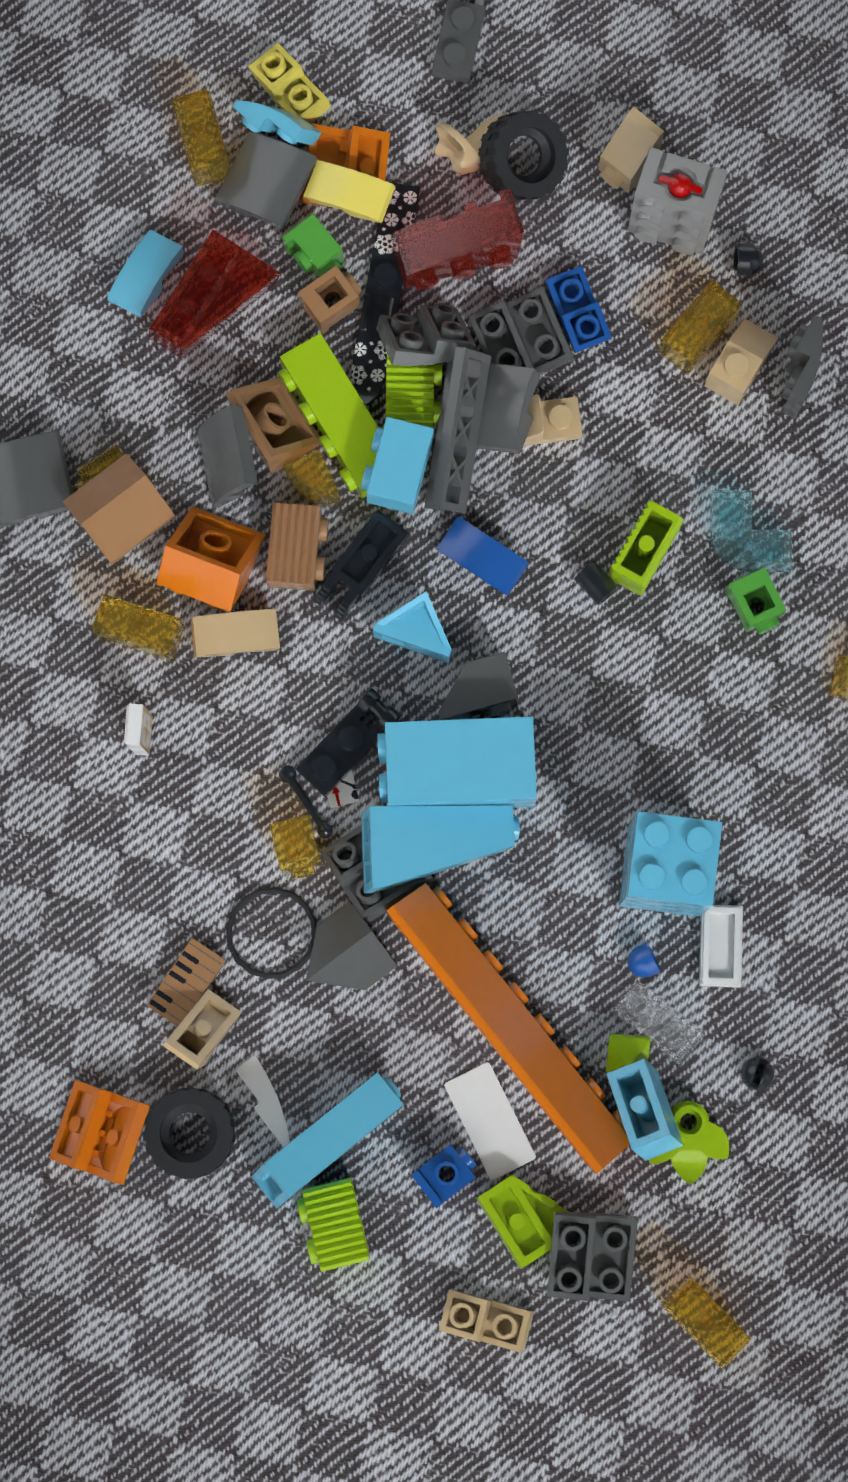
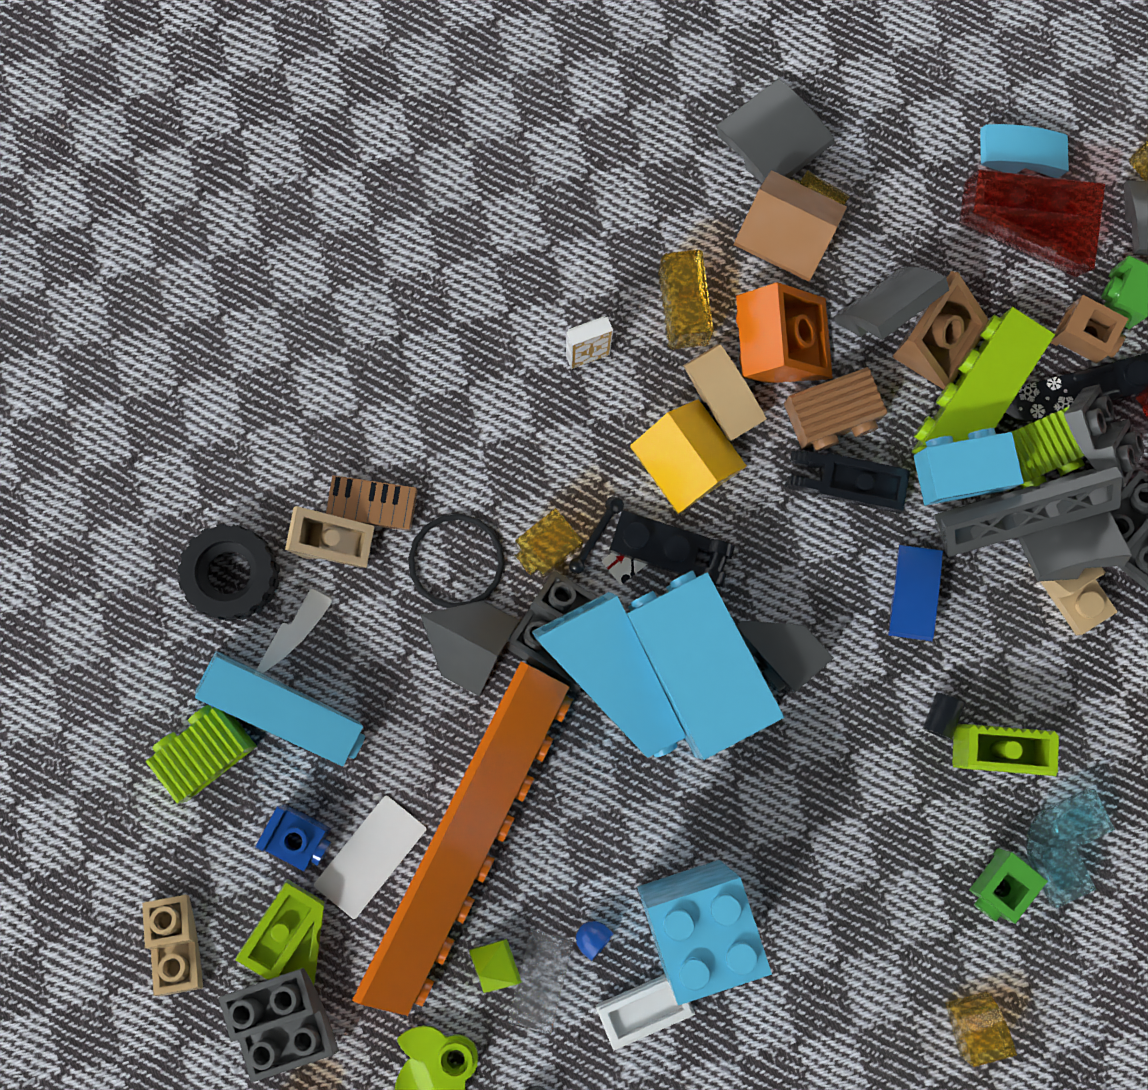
camera: 55 degrees right, 0 degrees up
(99, 1132) = (192, 487): orange slope -> none
(274, 690) = (687, 455): none -> yellow slope
(312, 479) = (907, 395): clear yellow brick -> none
(416, 629) = (813, 560): medium azure slope -> none
(644, 1109) = (444, 1013): medium azure brick -> none

